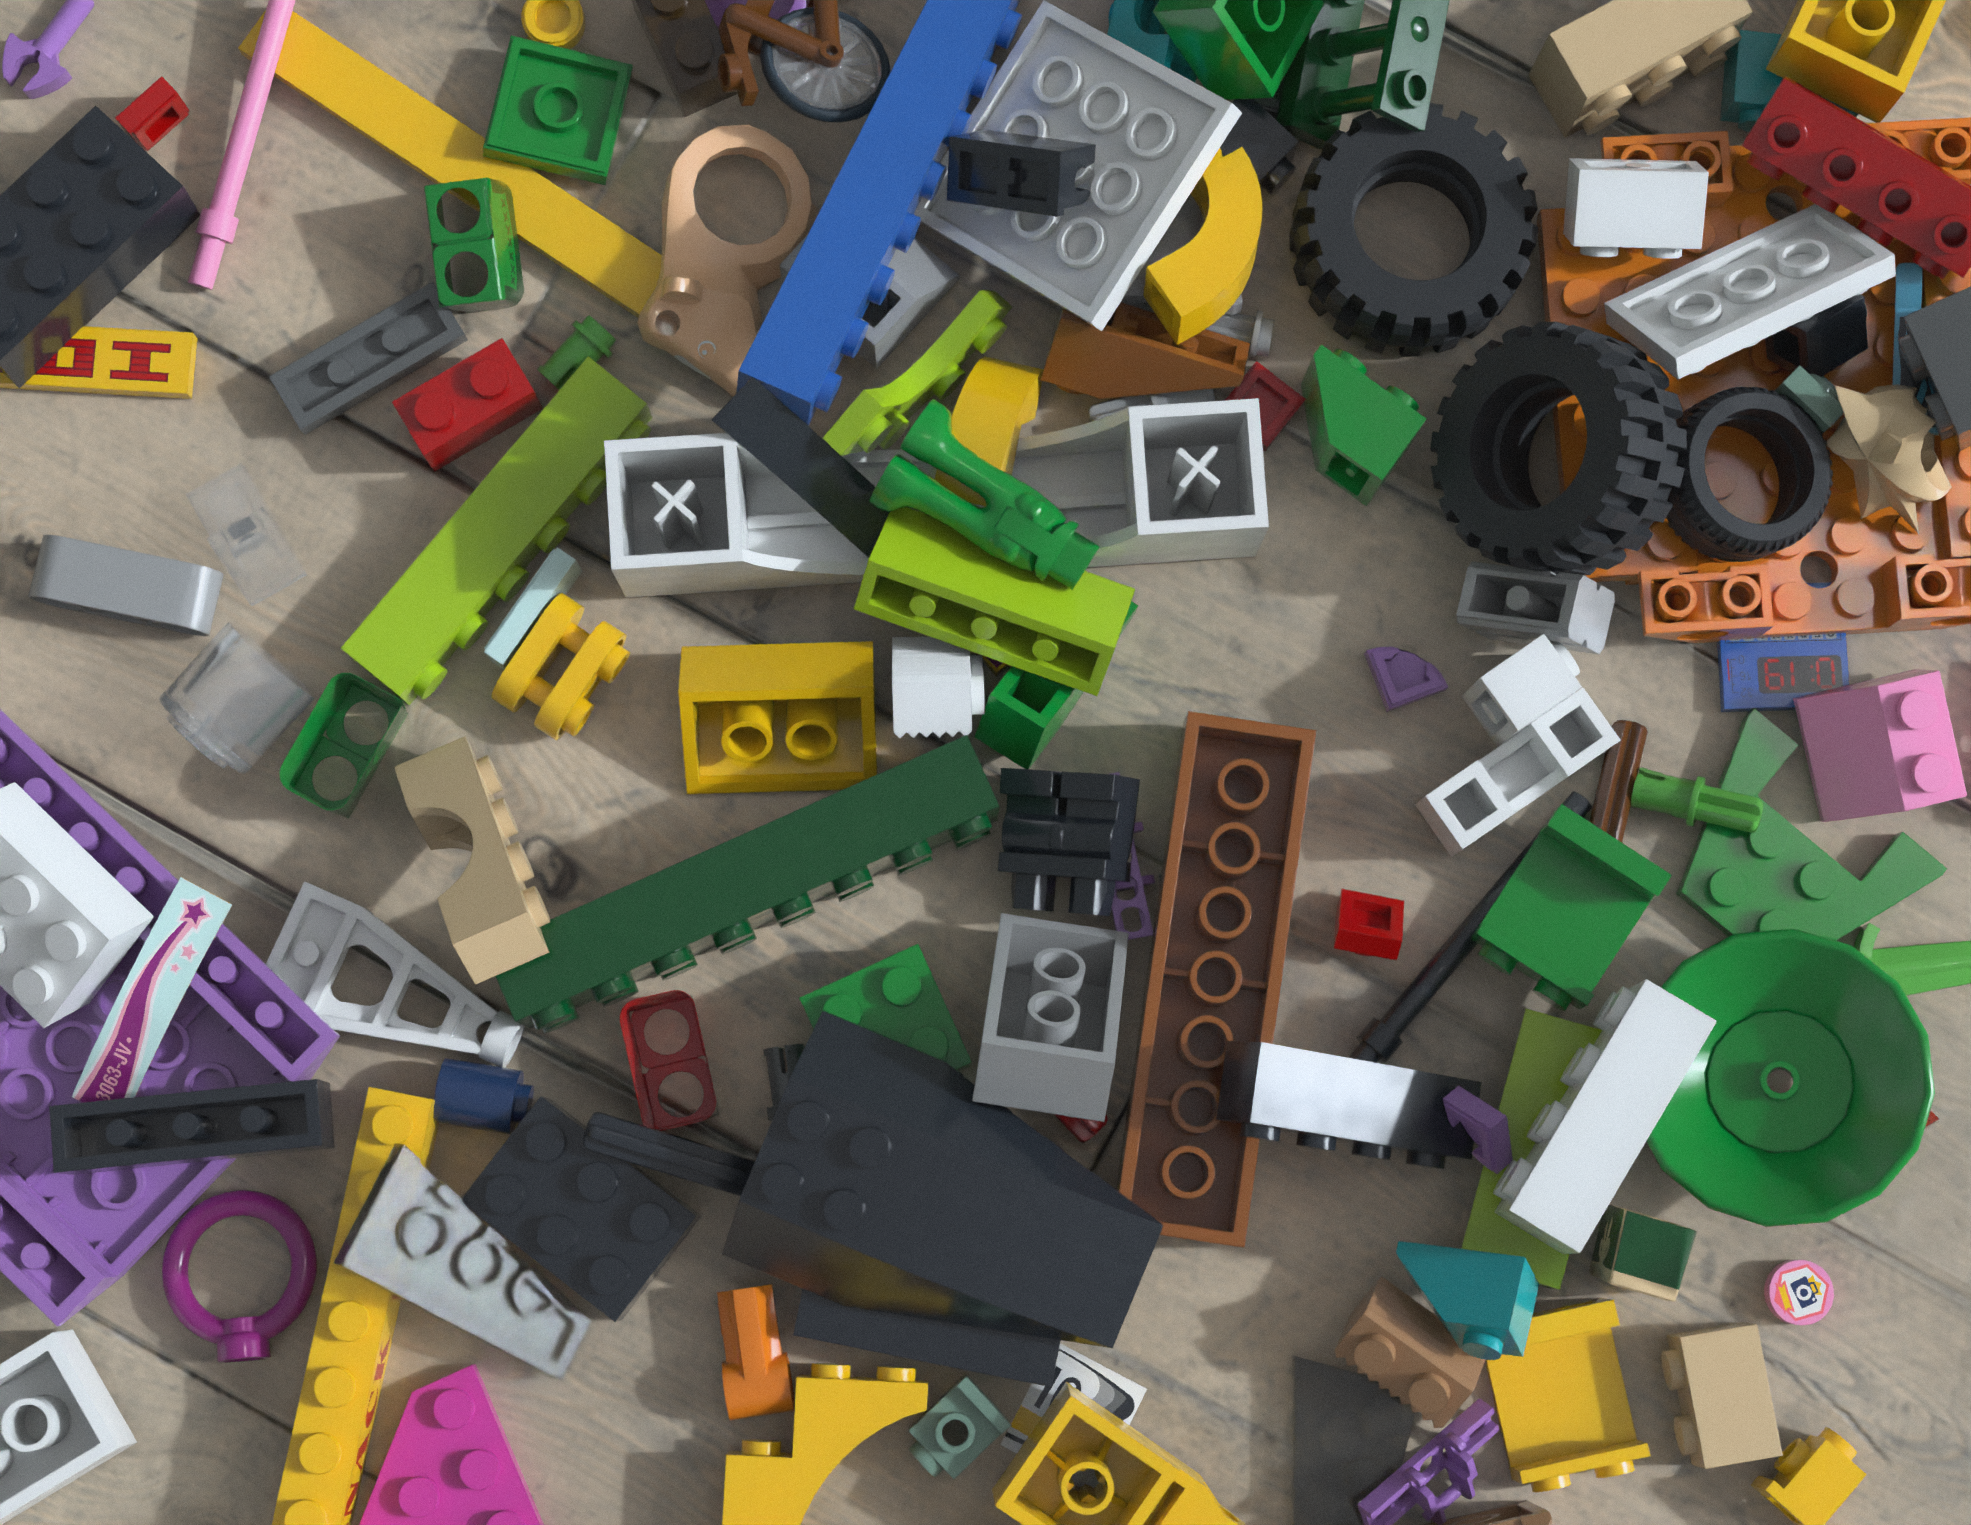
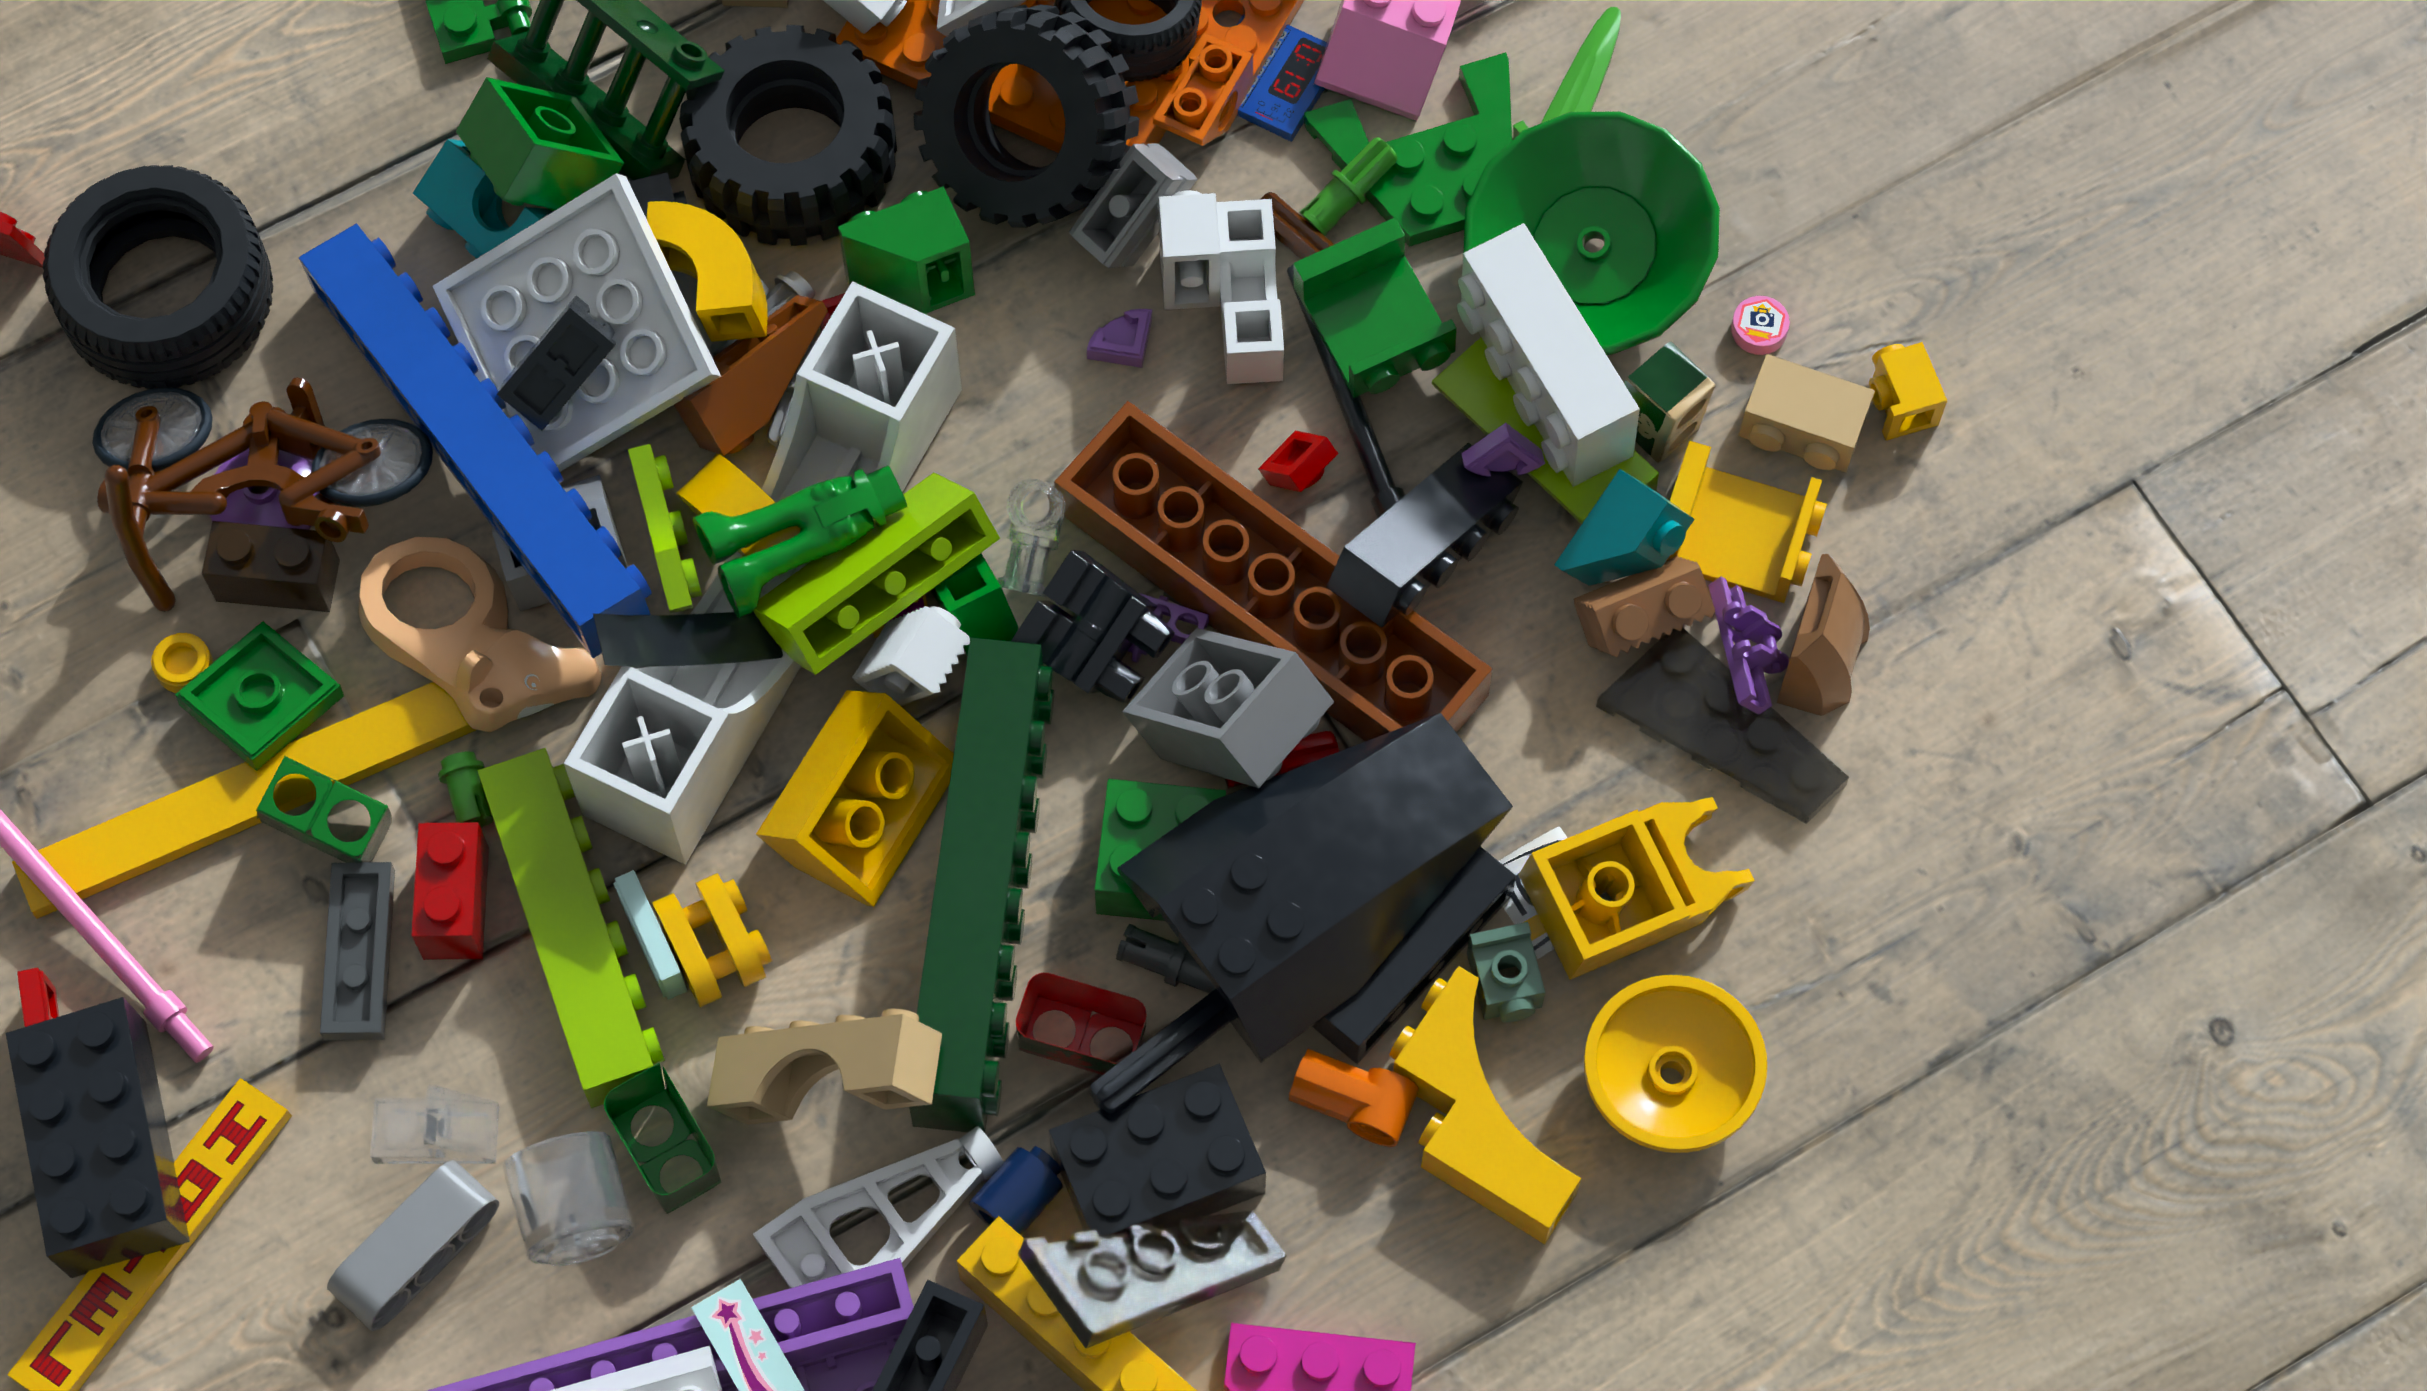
camera: 55 degrees left, 15 degrees down
(1123, 722) = (1031, 540): none -> clear connector

